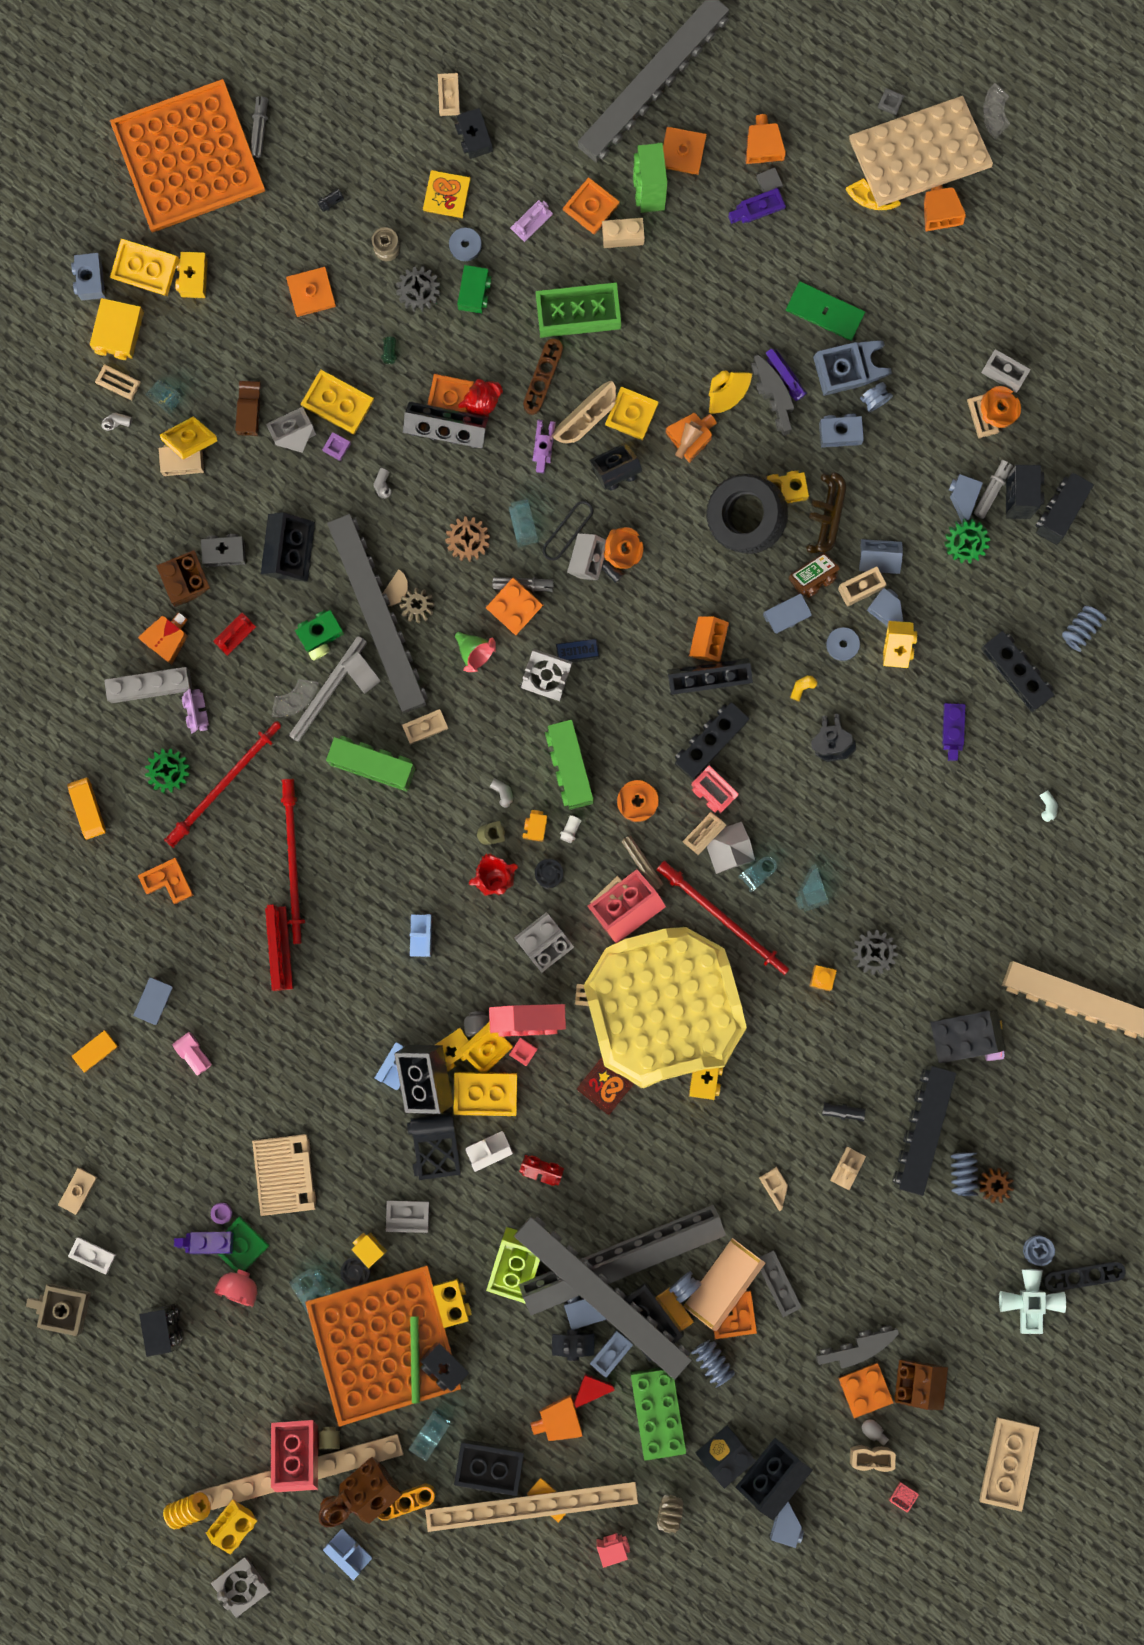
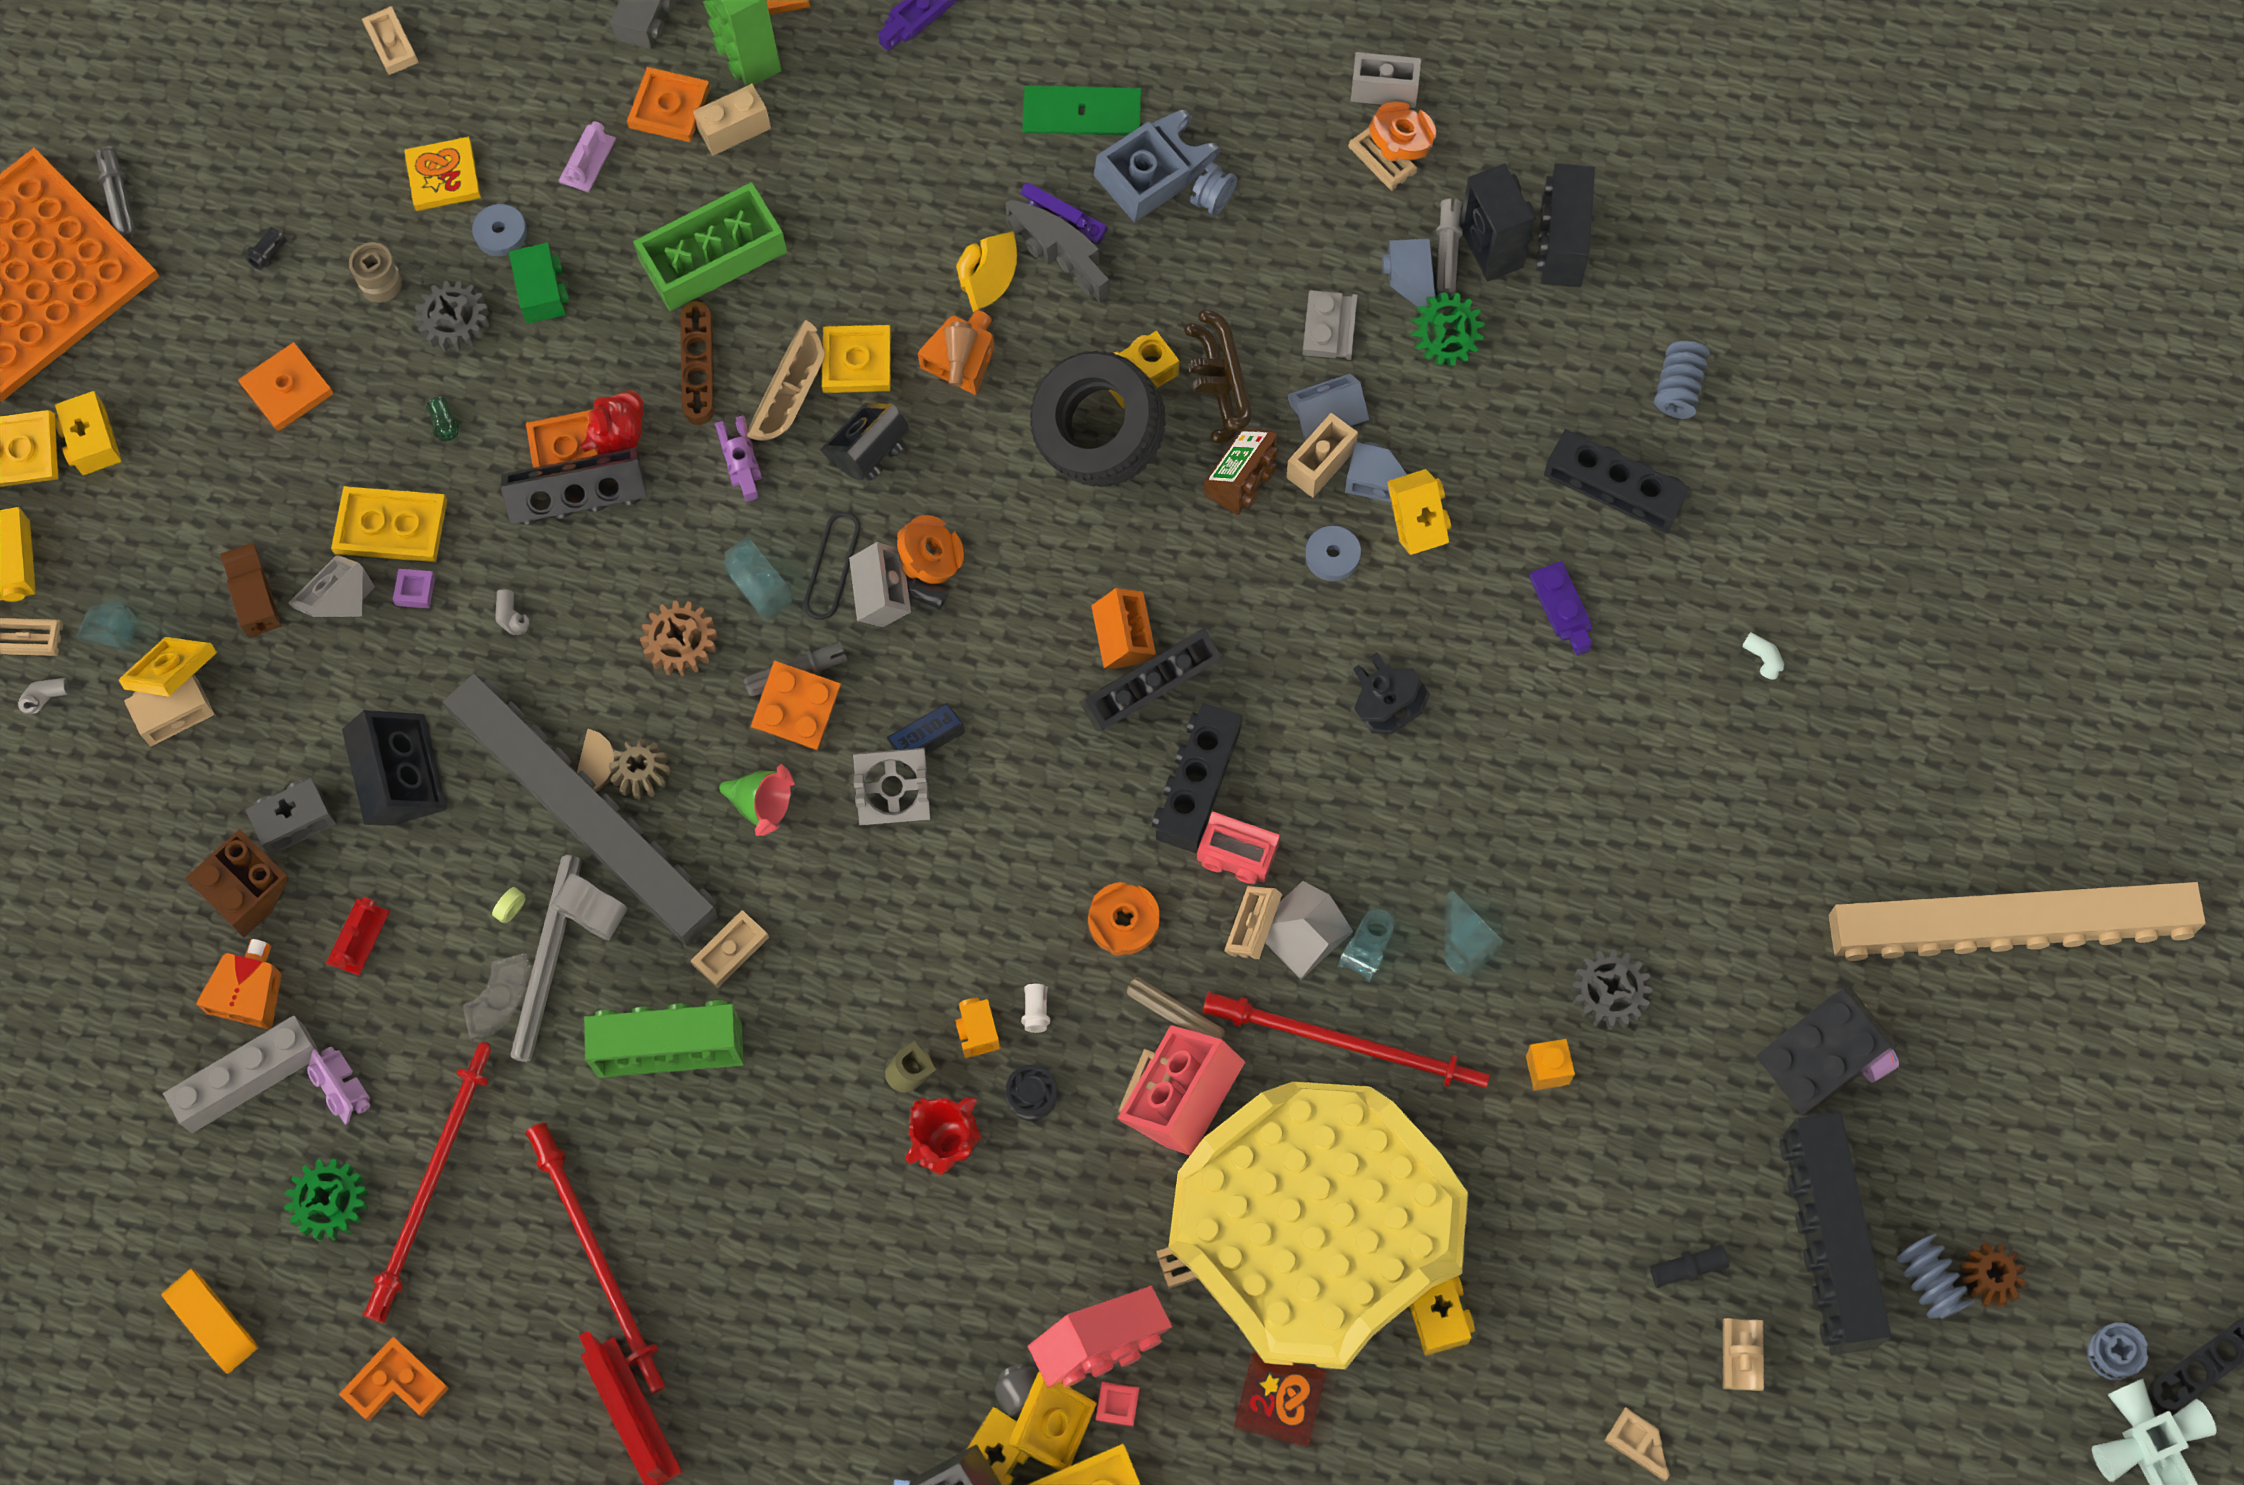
camera: 25 degrees left, 15 degrees down
(331, 631) = (496, 851): green brick -> none
(421, 935) = (863, 1286): light blue panel -> none
(473, 122) = (450, 76): black brick -> none
(505, 792) = (903, 995): light grey arm -> none
(544, 942) = (1072, 1205): light grey brick -> none
(570, 764) = (990, 904): bright green brick -> none
(787, 614) = (1227, 540): sand blue panel -> none
(802, 684) = (1297, 638): yellow arm -> none
(831, 438) = (1175, 272): sand blue brick -> none
(904, 507) = (1329, 325): none -> light grey plate

